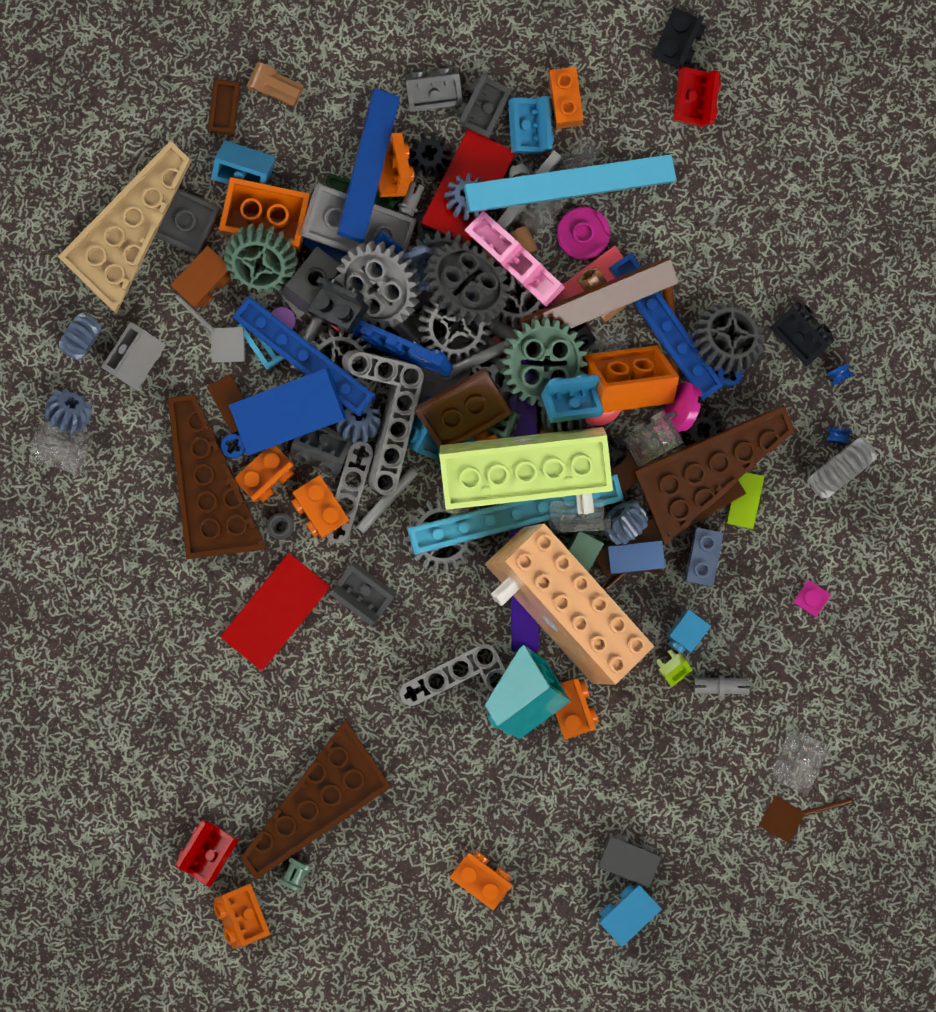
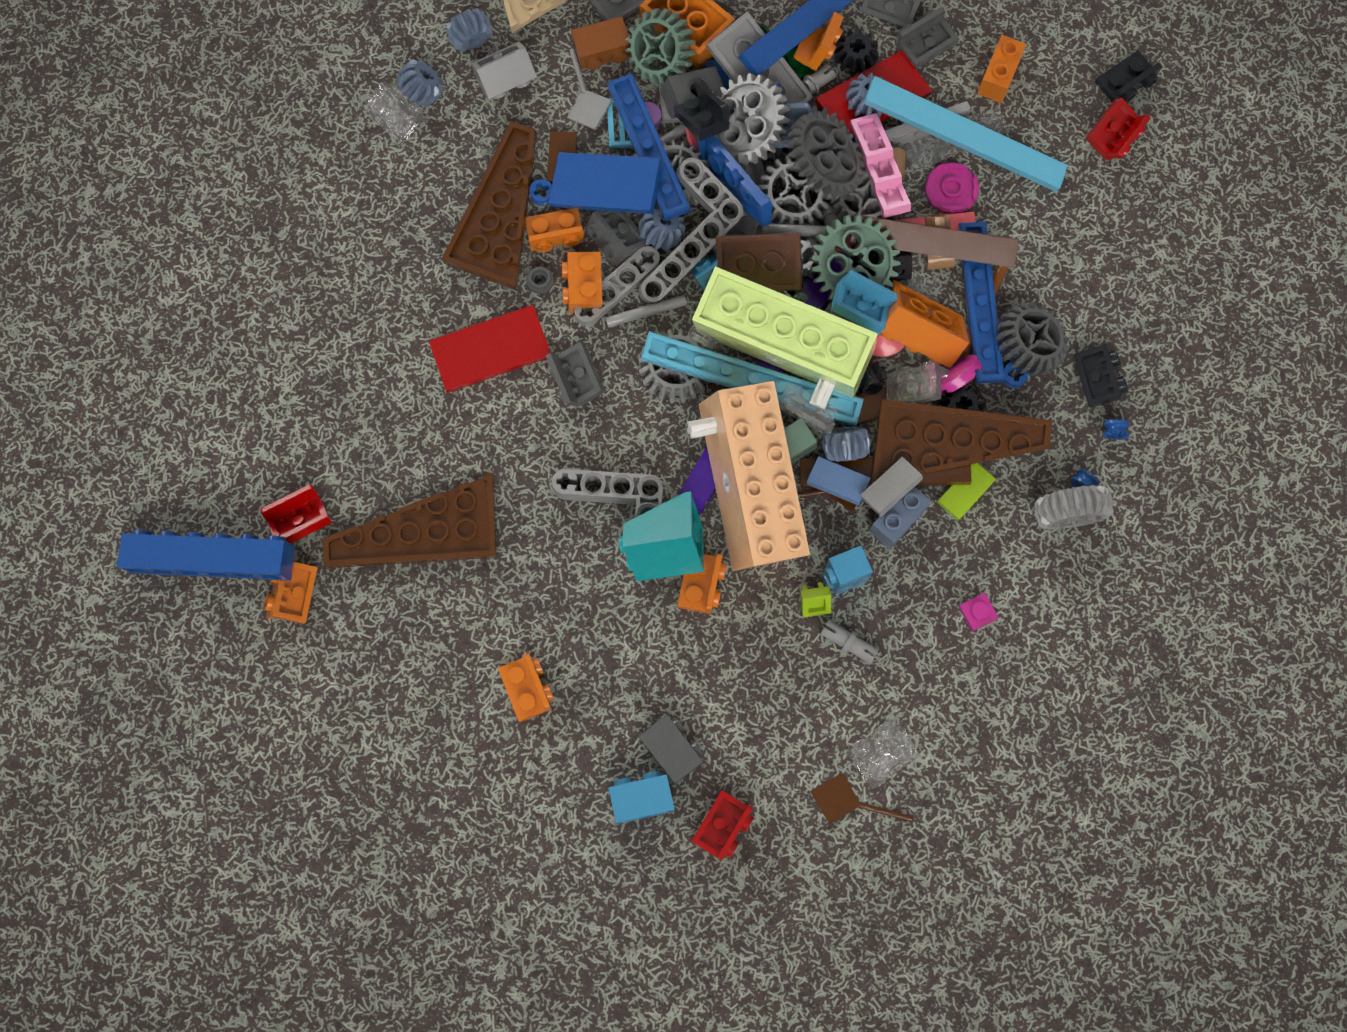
camera: 30 degrees right, 10 degrees down
(156, 931) = (206, 556): none -> blue brick
(295, 874) = (361, 582): sand green bush -> none
(530, 125) = (957, 75): dark azure bracket -> none
(684, 541) = (891, 486): none -> light grey tile
(706, 896) = (722, 826): none -> red bracket

